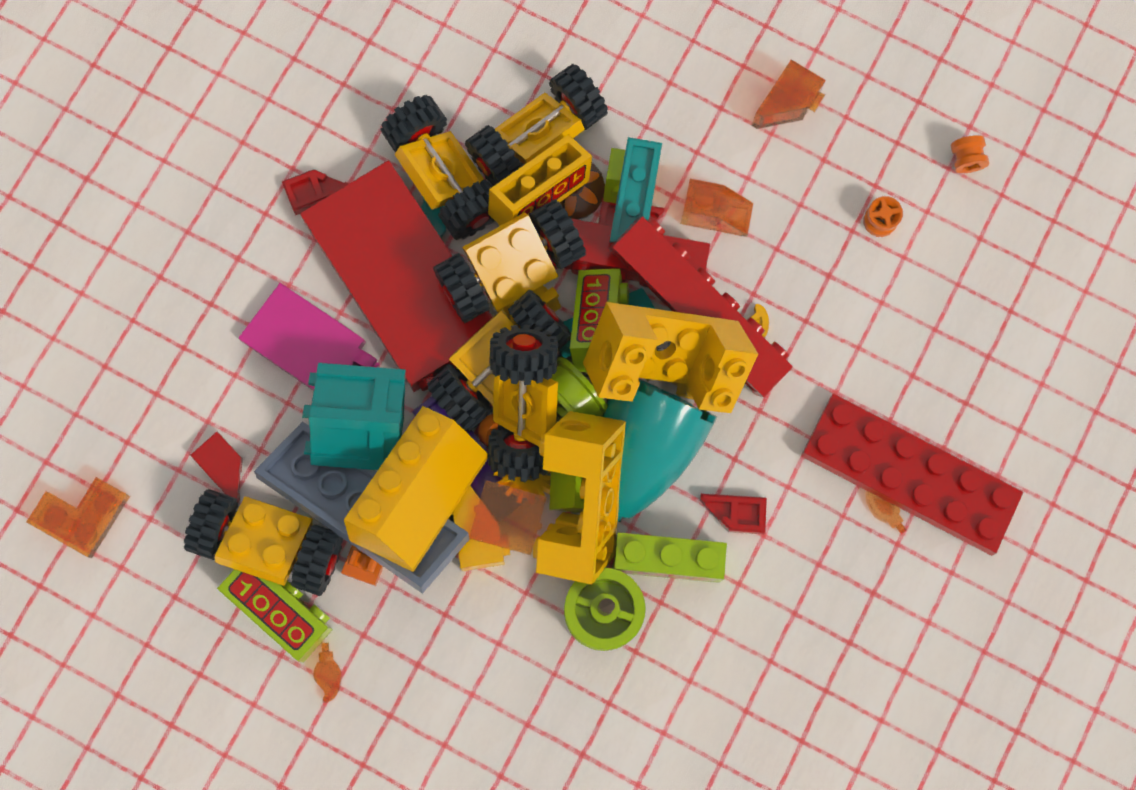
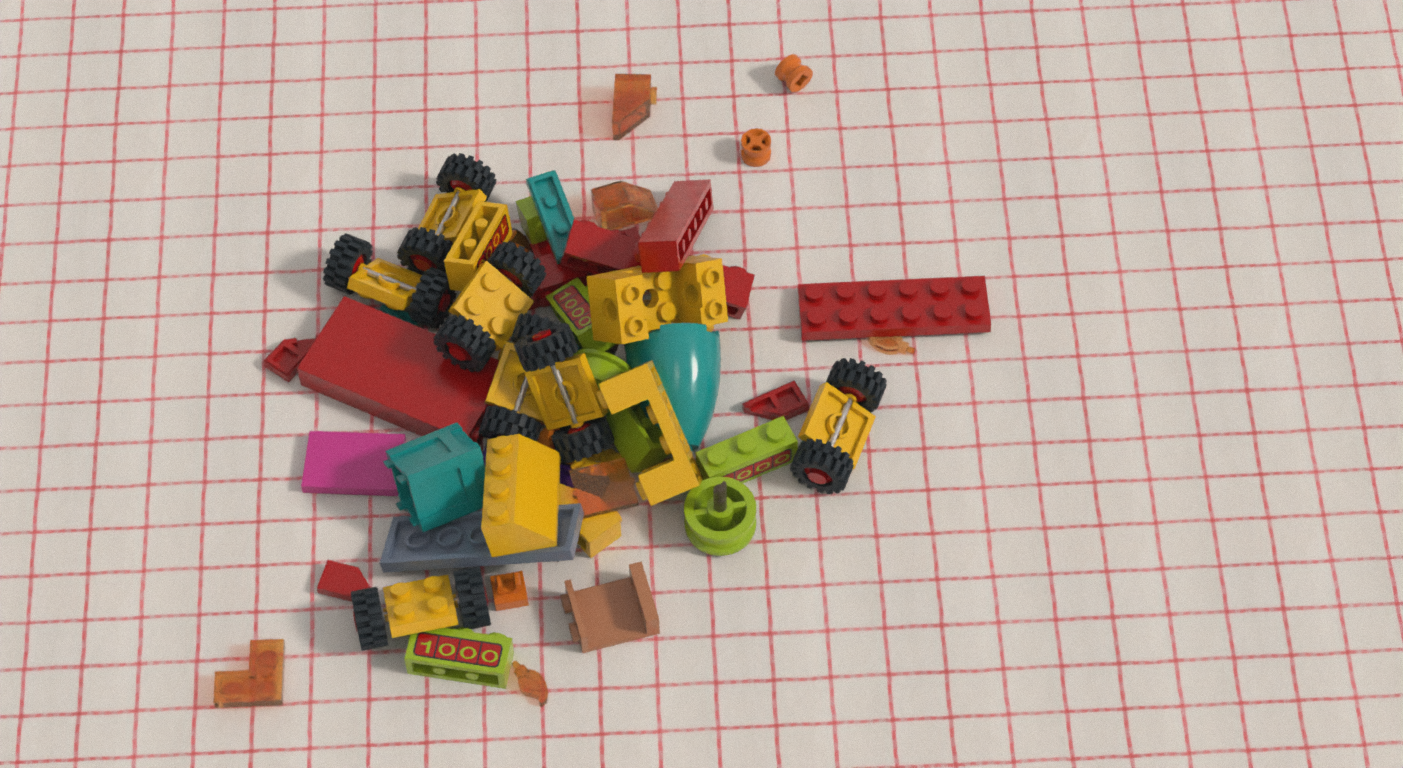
camera: 25 degrees left, 20 degrees down
(443, 643) = (611, 611): none -> nougat panel
(738, 280) = (675, 226): none -> red brick
(775, 580) = (837, 426): none -> plate

